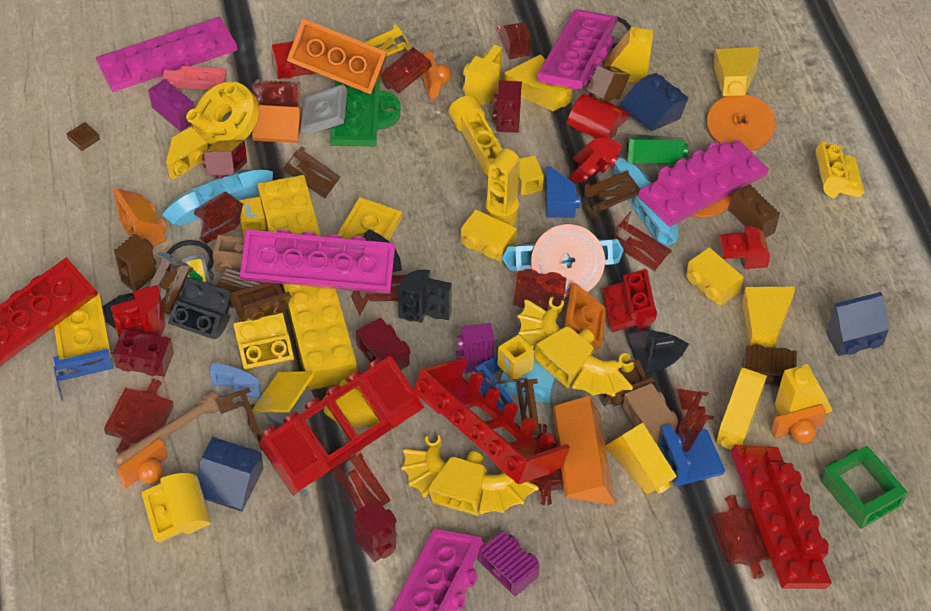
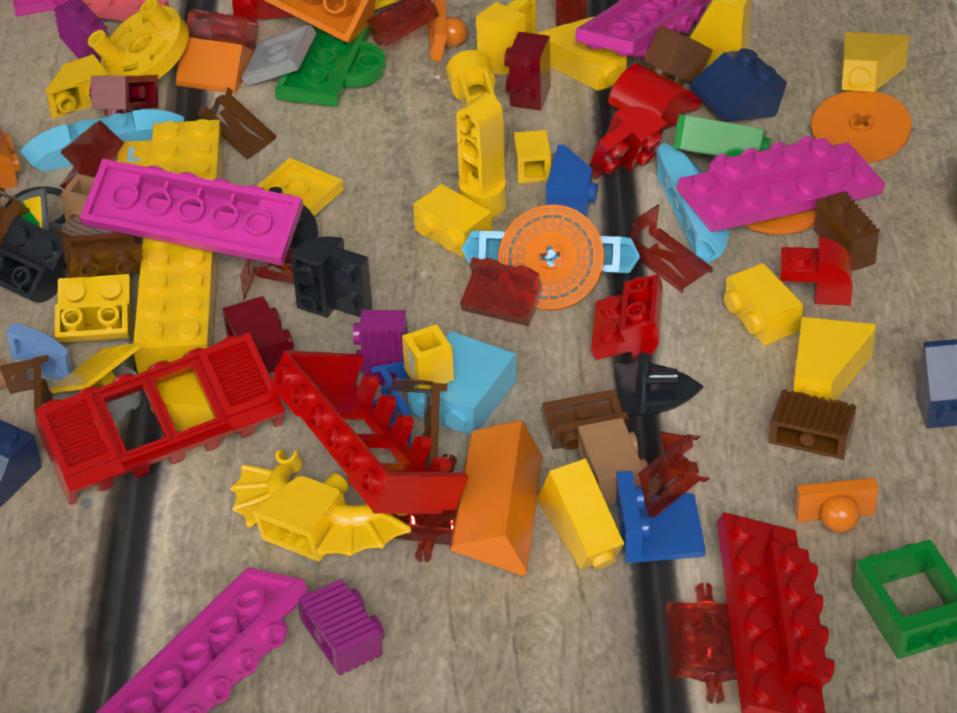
camera: 15 degrees right, 10 degrees down
(365, 472) = (171, 520): clear red piece -> none
(375, 530) = (159, 553): dark red brick -> none
(569, 354) = (511, 367): yellow torso -> none
(586, 313) = (552, 334): orange slope -> none
(620, 193) = (627, 178): reddish brown piece -> none
(741, 409) = (752, 467): yellow slope -> none
(800, 391) = (847, 452): yellow slope -> none

